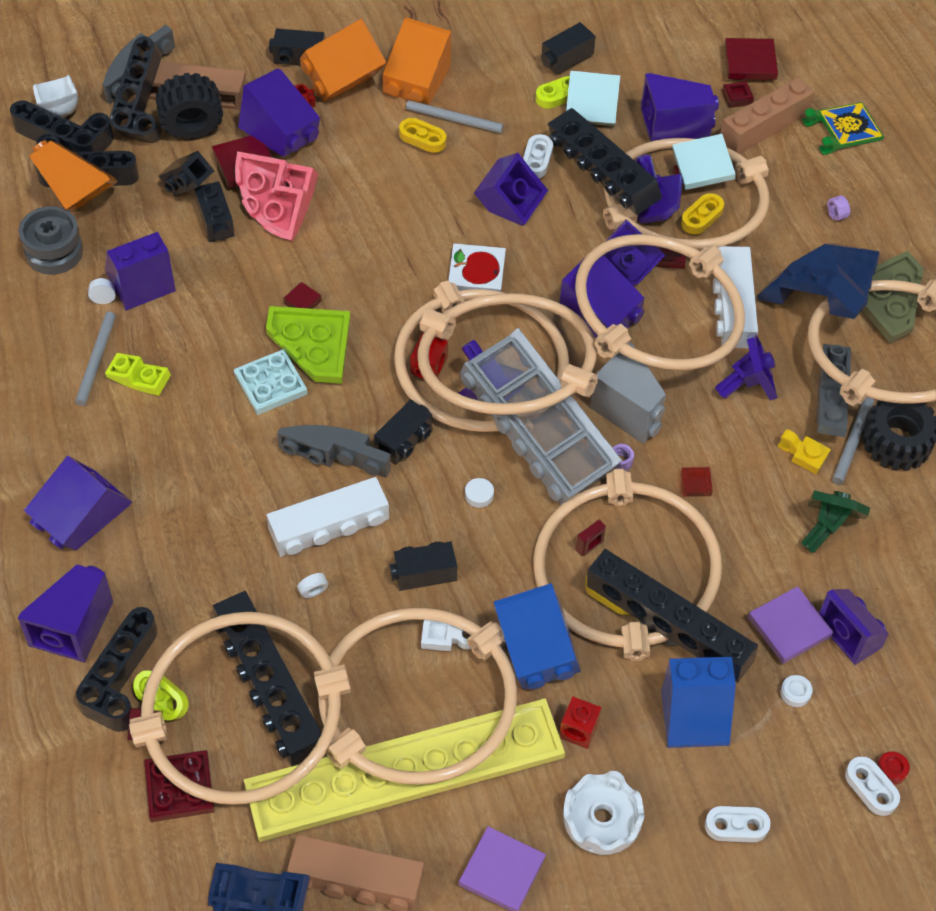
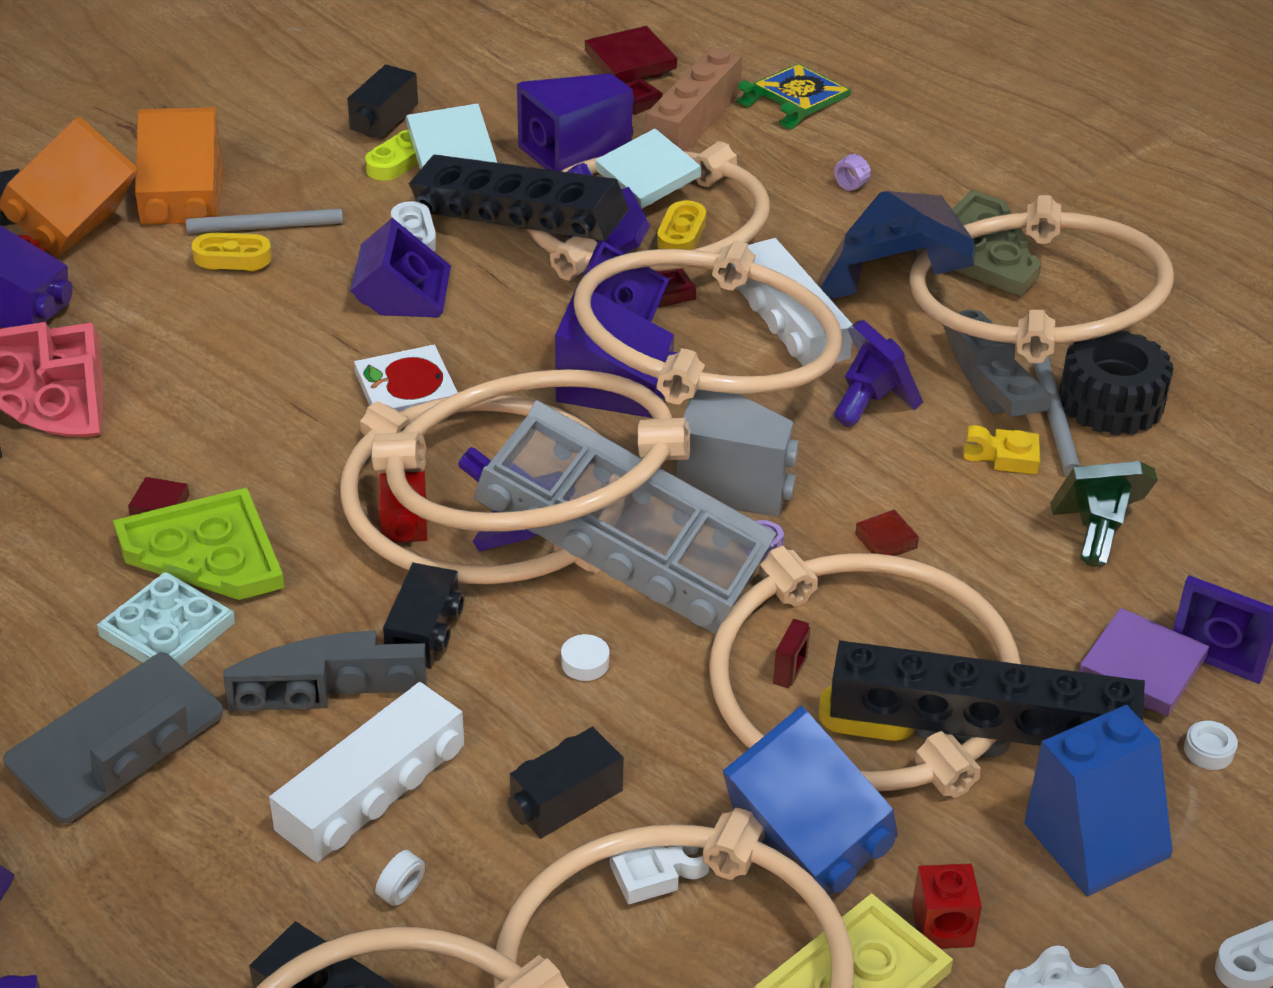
camera: 25 degrees left, 15 degrees down
(212, 442) = (112, 737): none -> dark grey bracket

